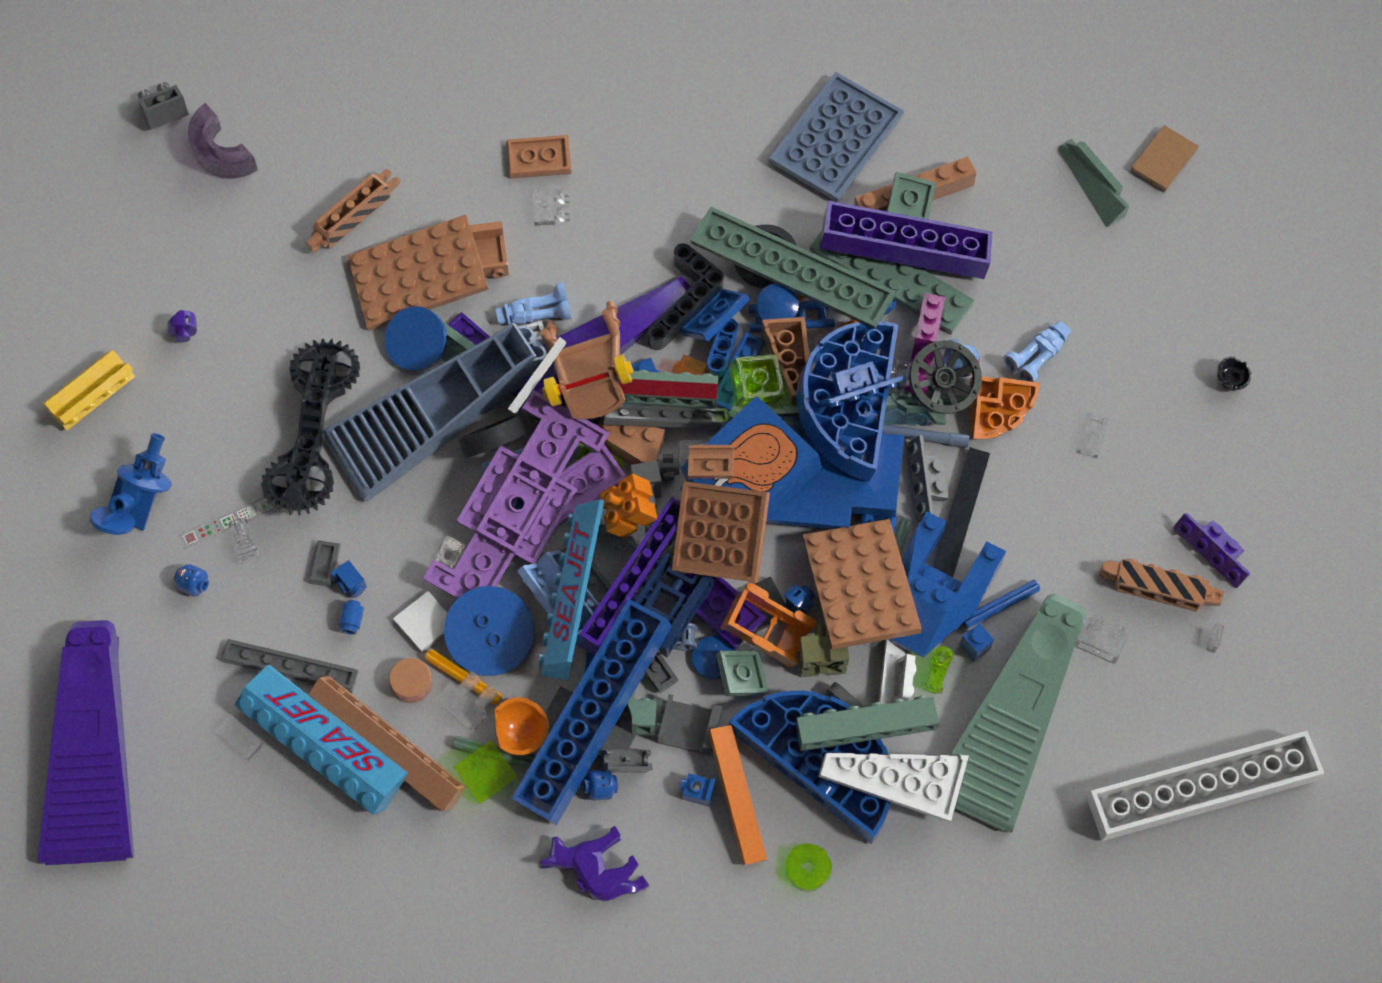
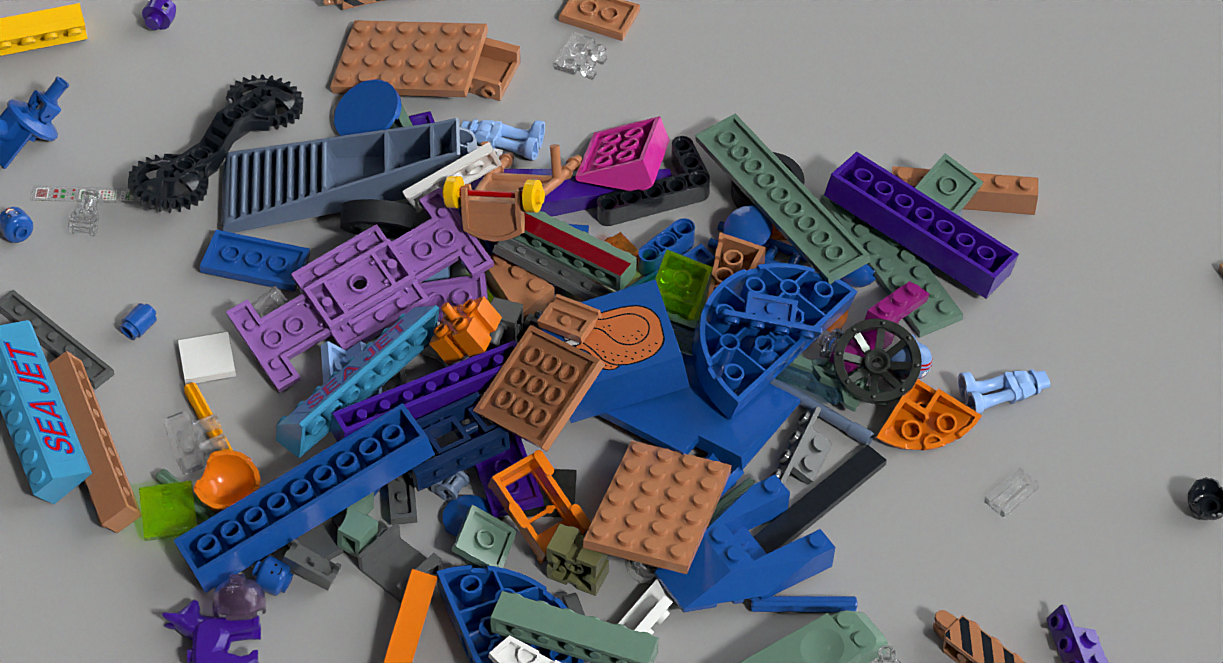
camera: 30 degrees right, 15 degrees down
(324, 563) = (148, 267): dark grey tile -> none
(349, 579) = (159, 287): blue brick -> none
(408, 516) = (253, 260): none -> blue plate
(410, 680) = (155, 399): nougat head -> none
(489, 631) = (257, 388): blue plate -> none
(592, 822) = (238, 598): none -> clear purple cylinder
(645, 284) = (625, 155): none -> dark pink slope
(701, 796) = (368, 627): blue brick -> none
(714, 315) = (677, 212): blue tile -> none
(799, 597) = (589, 498): blue piece -> none
(836, 136) = (914, 111): sand blue plate -> none
(938, 669) = (696, 631): clear neon green connector -> none
(976, 642) = (751, 625): blue brick -> none
(1096, 181) = (1171, 263): sand green wedge -> none

